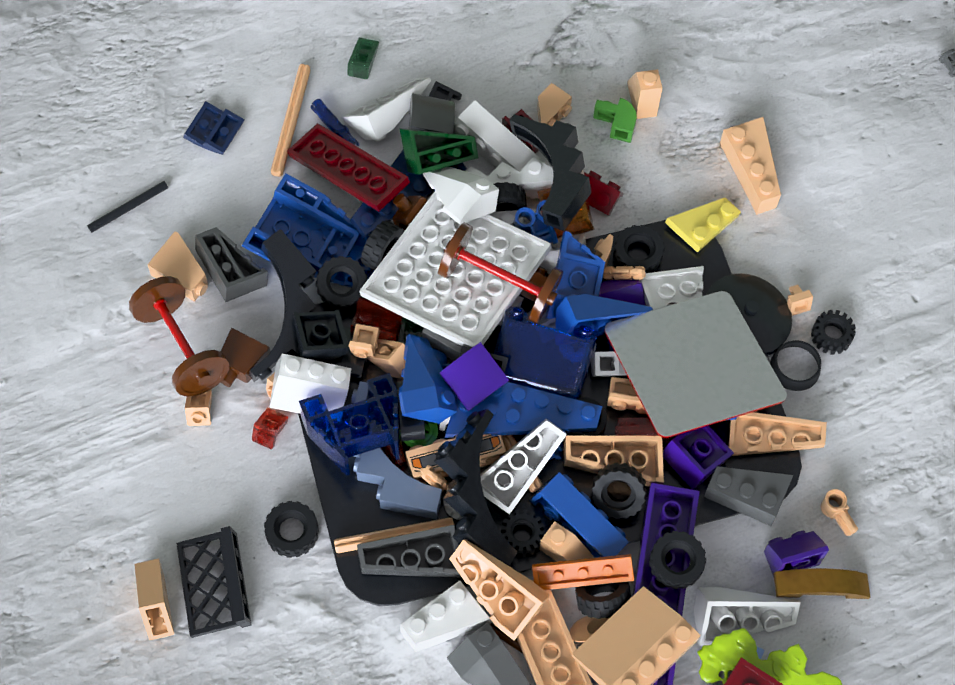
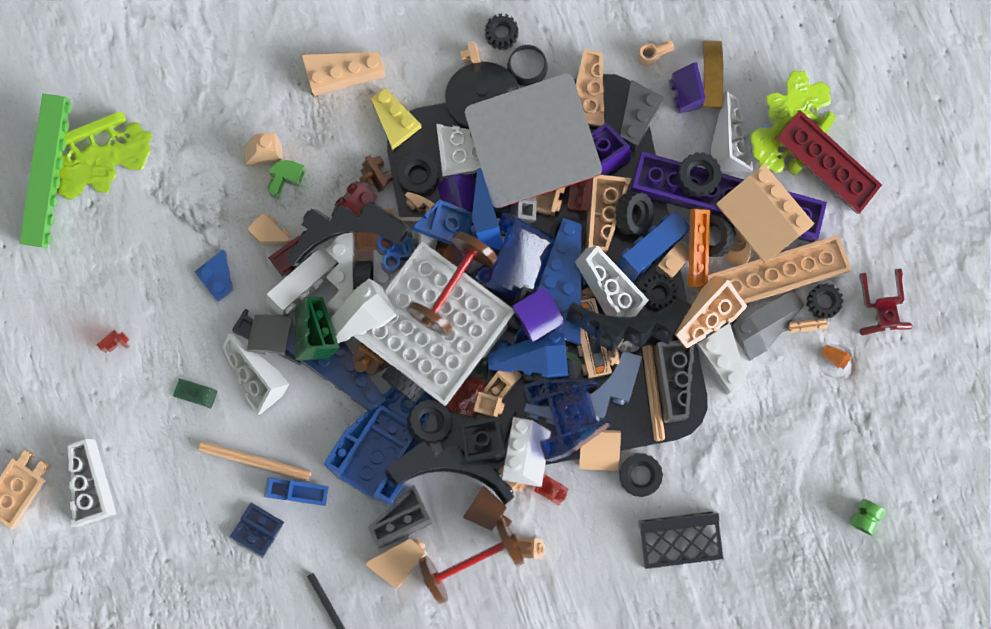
camera: 80 degrees left, 15 degrees up
(153, 599) = (692, 587): light nougat slope -> none
(257, 160) = (296, 491): none -> blue slope
(317, 478) = (601, 452): none -> light nougat slope
(332, 121) = (274, 416): clear blue pin -> none
(348, 167) = (316, 410): dark red plate -> none
(496, 65) = (216, 276): none -> blue wing
(624, 273) = (440, 186): light nougat axle -> none
(644, 205) = (372, 174): none -> reddish brown hips

